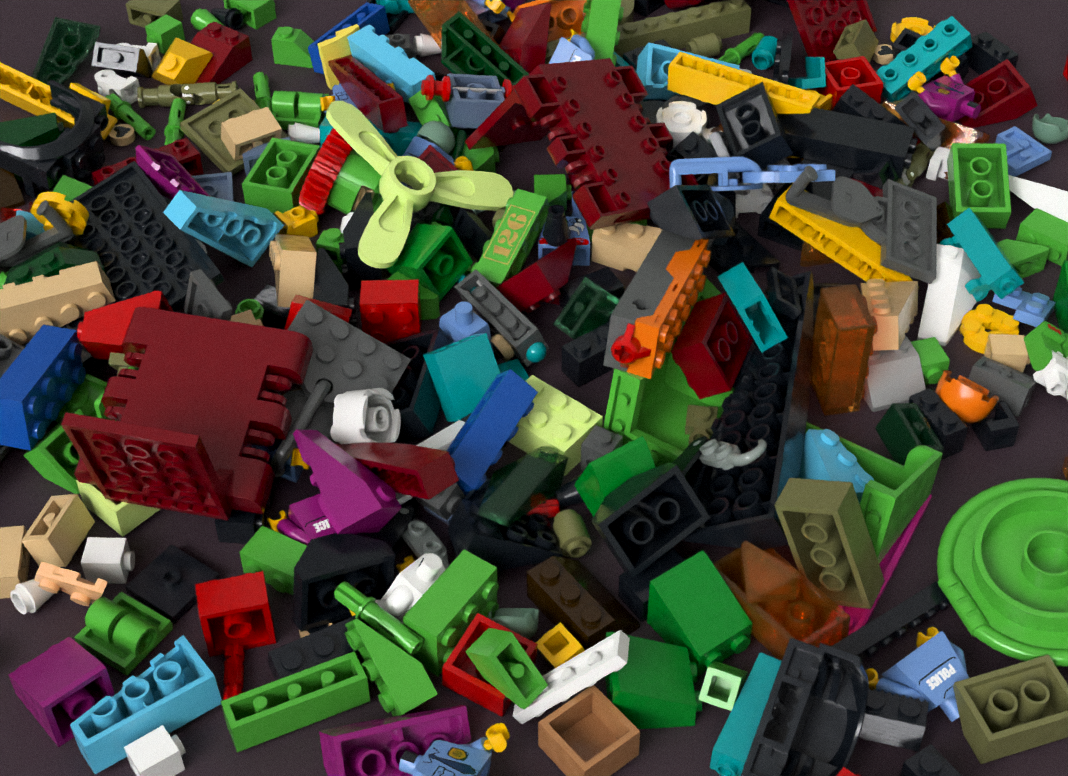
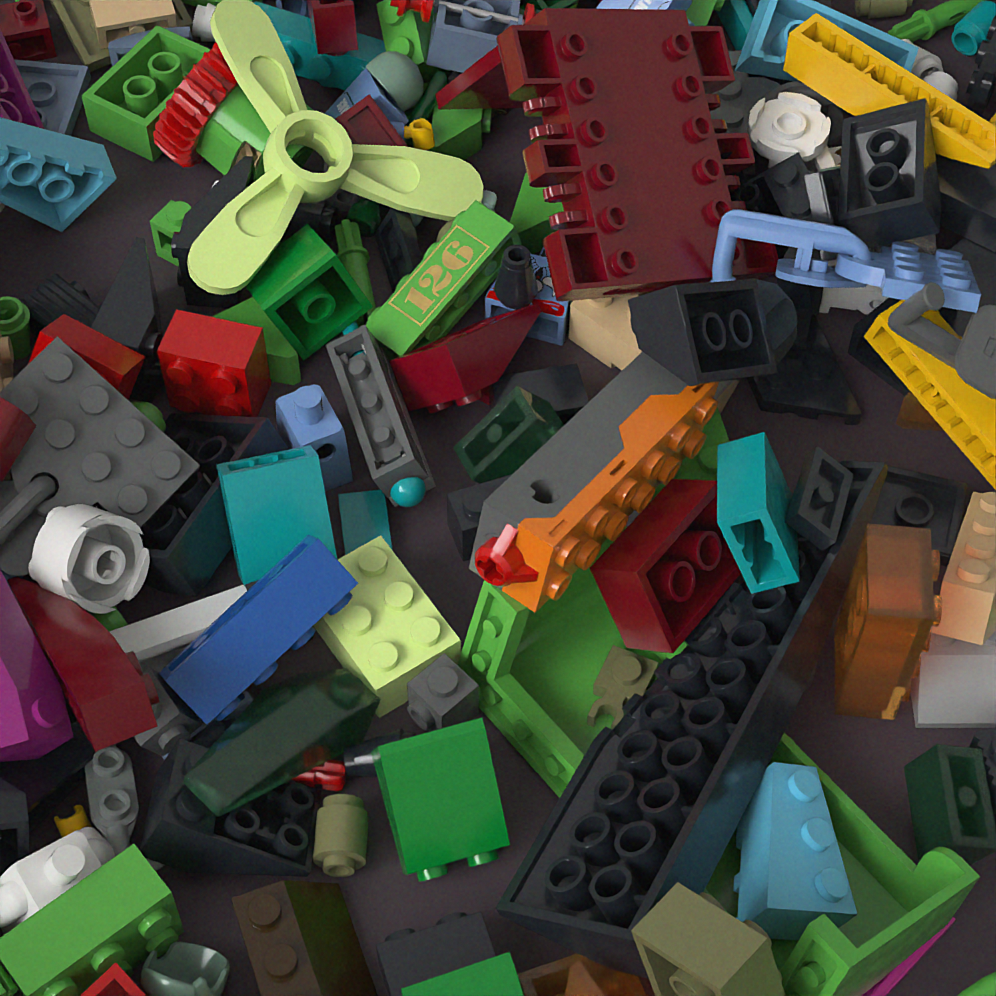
camera: 15 degrees right, 10 degrees up
(293, 266) = (92, 255): tan wedge -> none
(298, 222) = (148, 176): yellow brick -> none
(502, 347) = (359, 466): tan tile -> none
(661, 505) = (465, 850): black slope -> none

